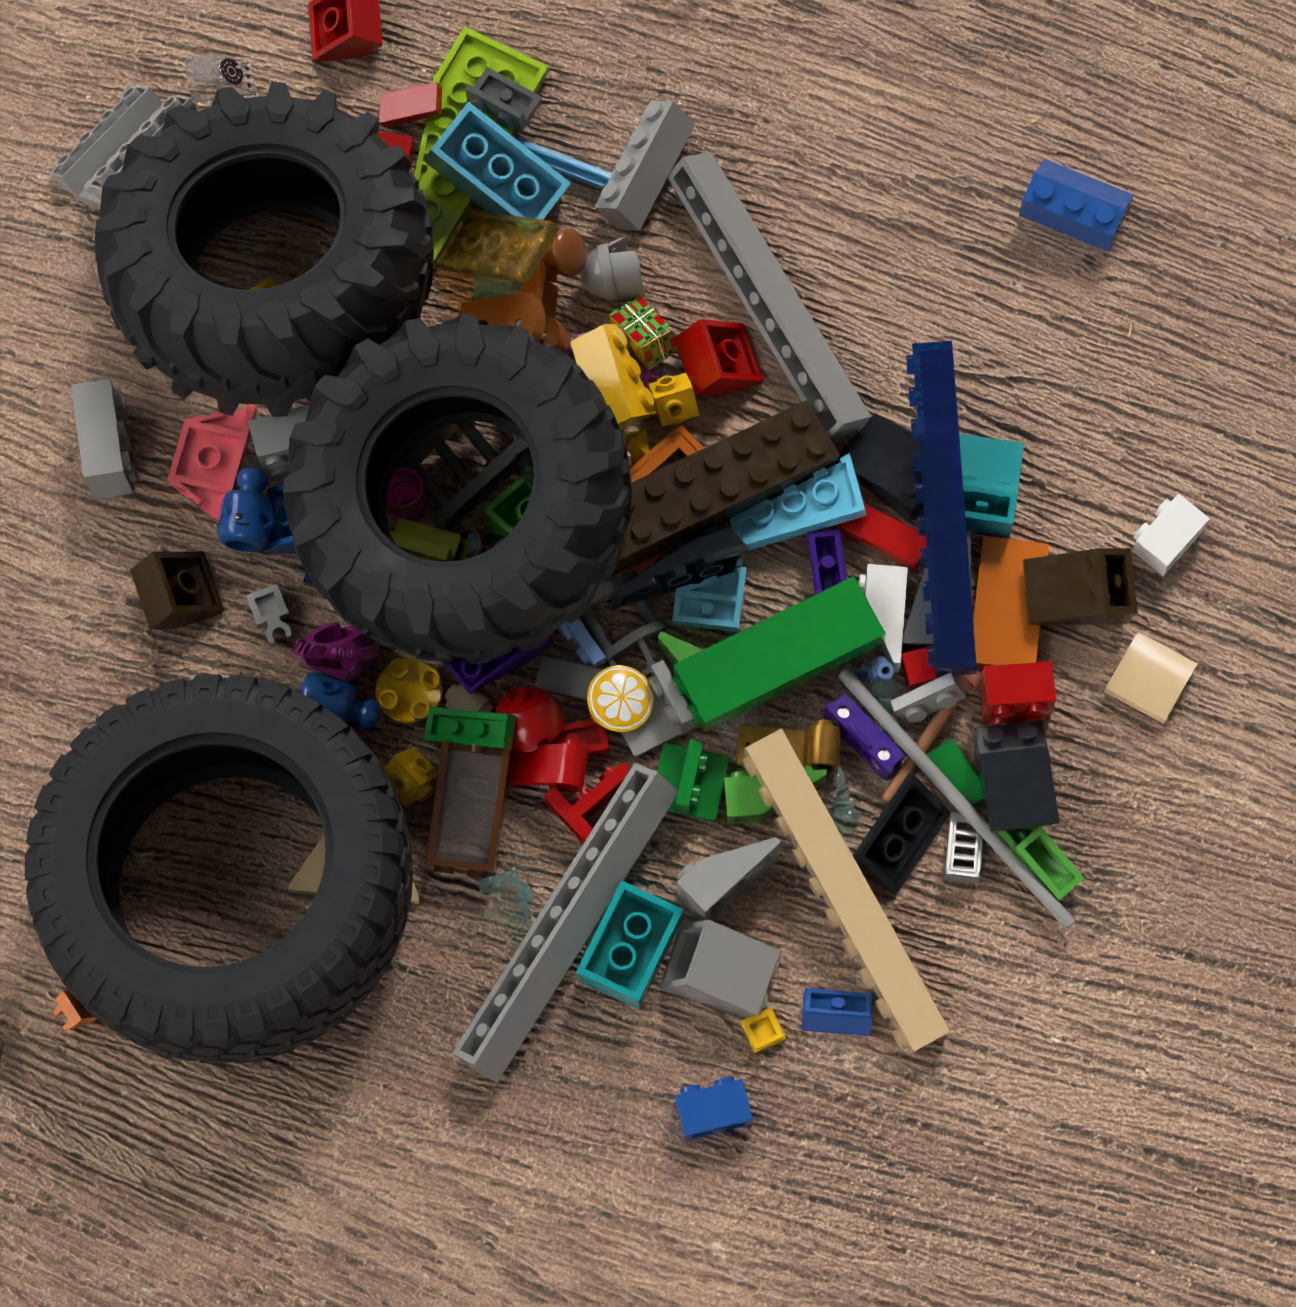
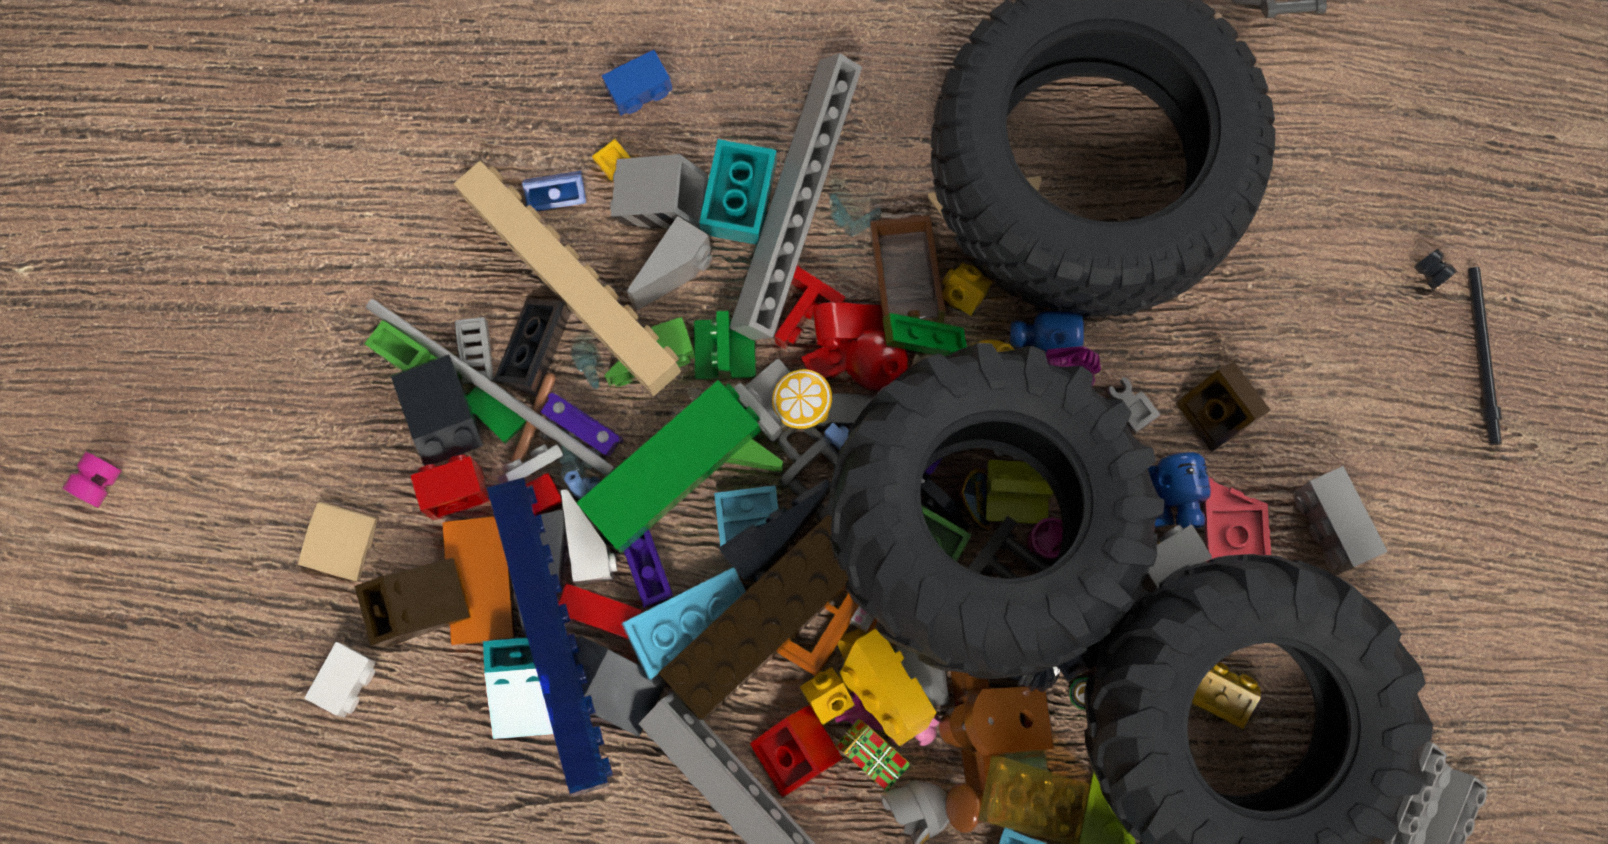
camera: 165 degrees right, 5 degrees up
(814, 746) = (633, 402): pearl gold door -> none

